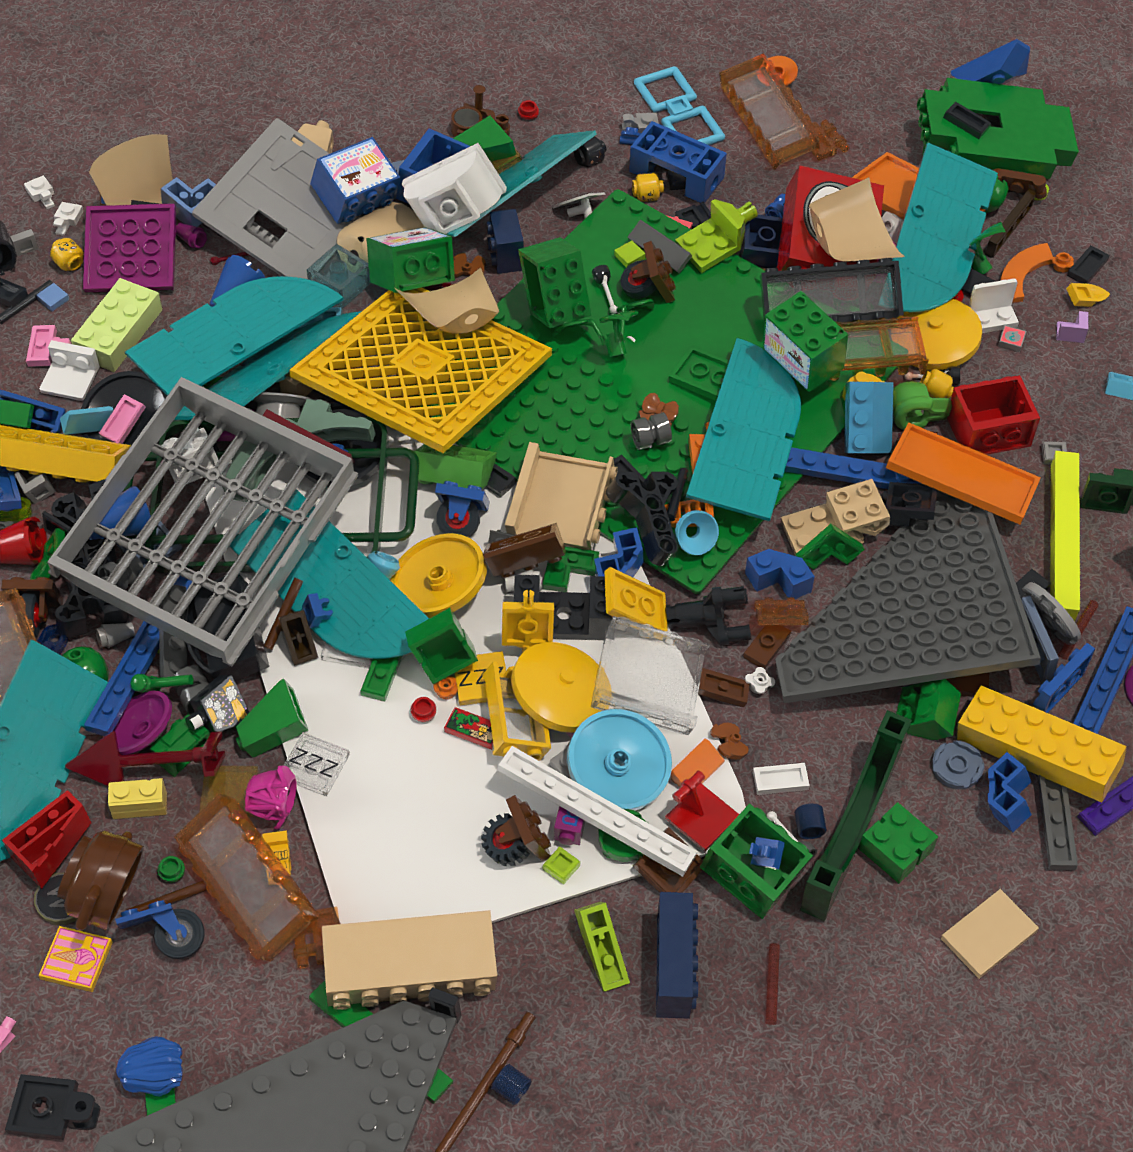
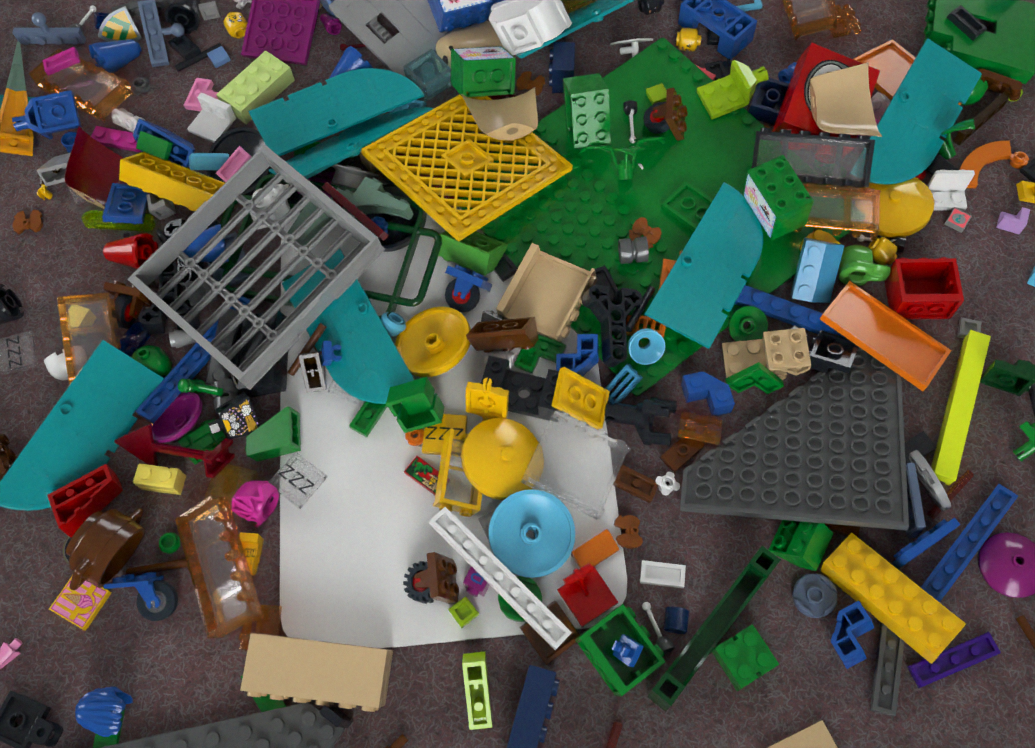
camera: 20 degrees right, 10 degrees up
(423, 709) = (392, 452): red plate -> none
(675, 254) = (689, 97): dark grey tile -> none
(687, 585) = (633, 373): none -> dark azure tile
(812, 483) = (757, 324): none -> green dish

